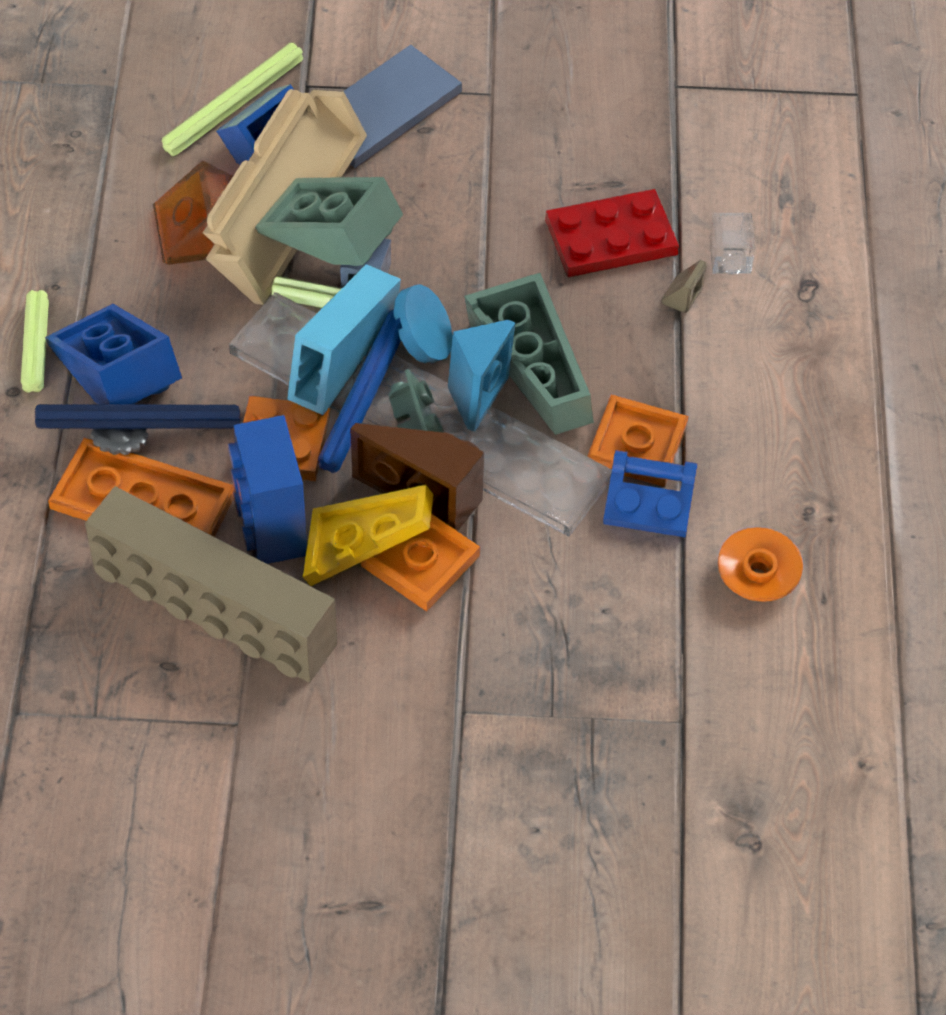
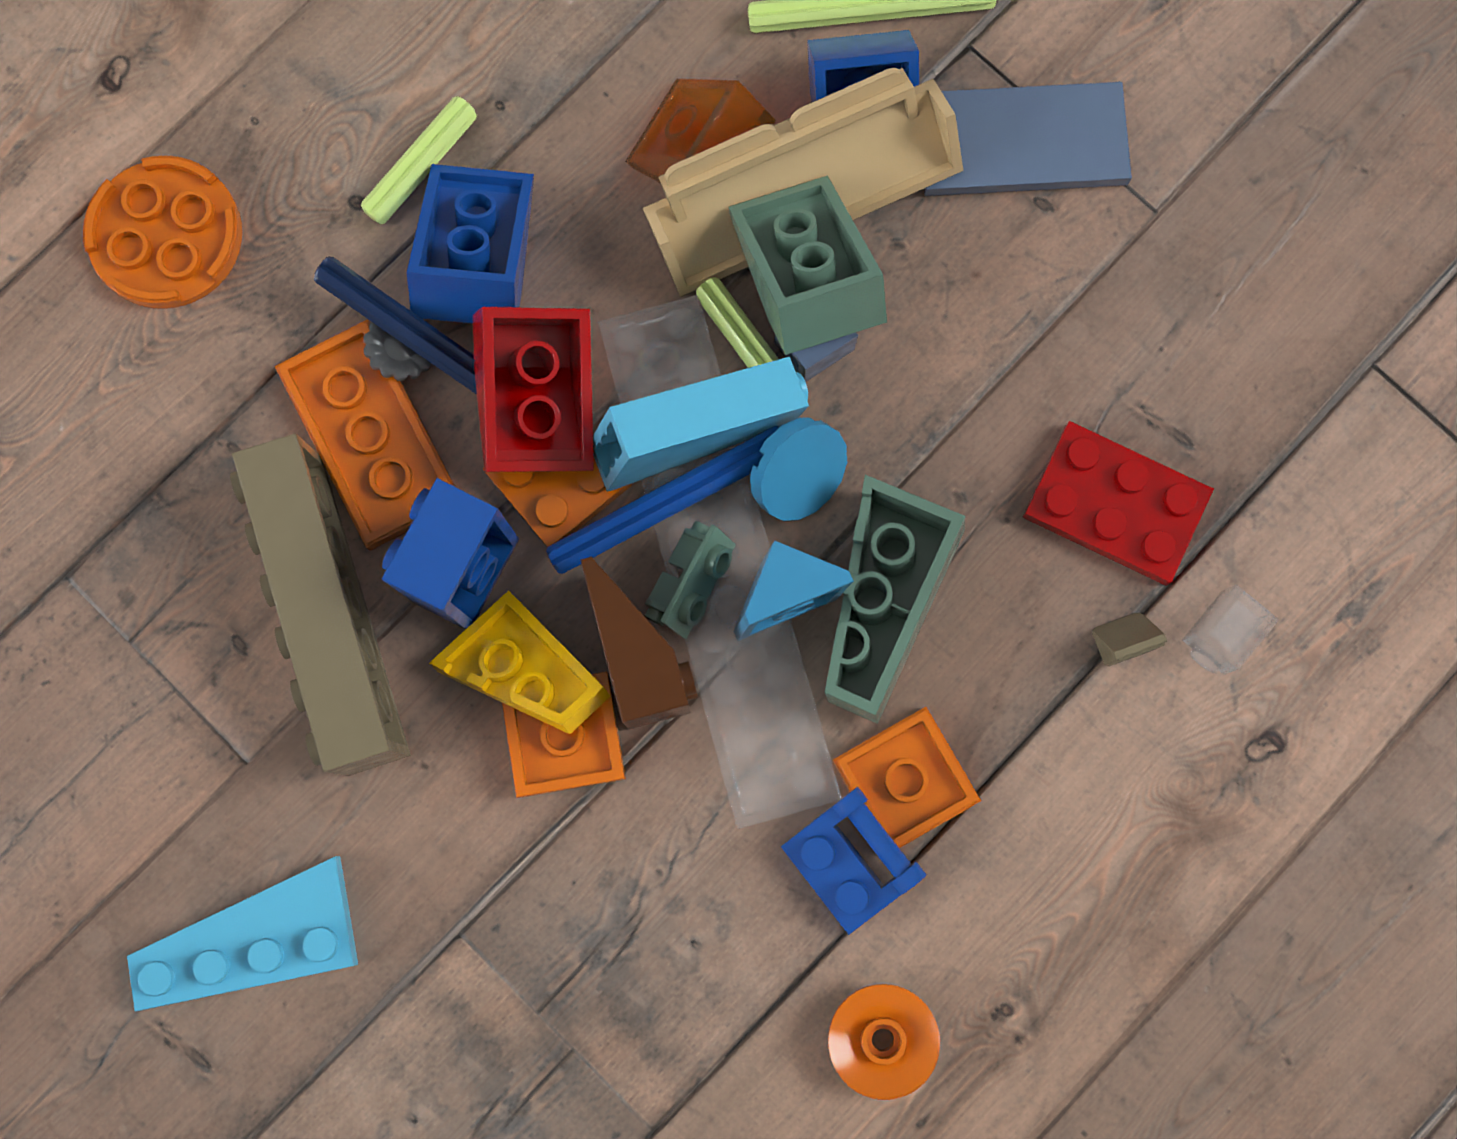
camera: 45 degrees right, 25 degrees up
(225, 379) = (534, 388): none -> red slope
(344, 805) = (265, 939): none -> medium azure wing

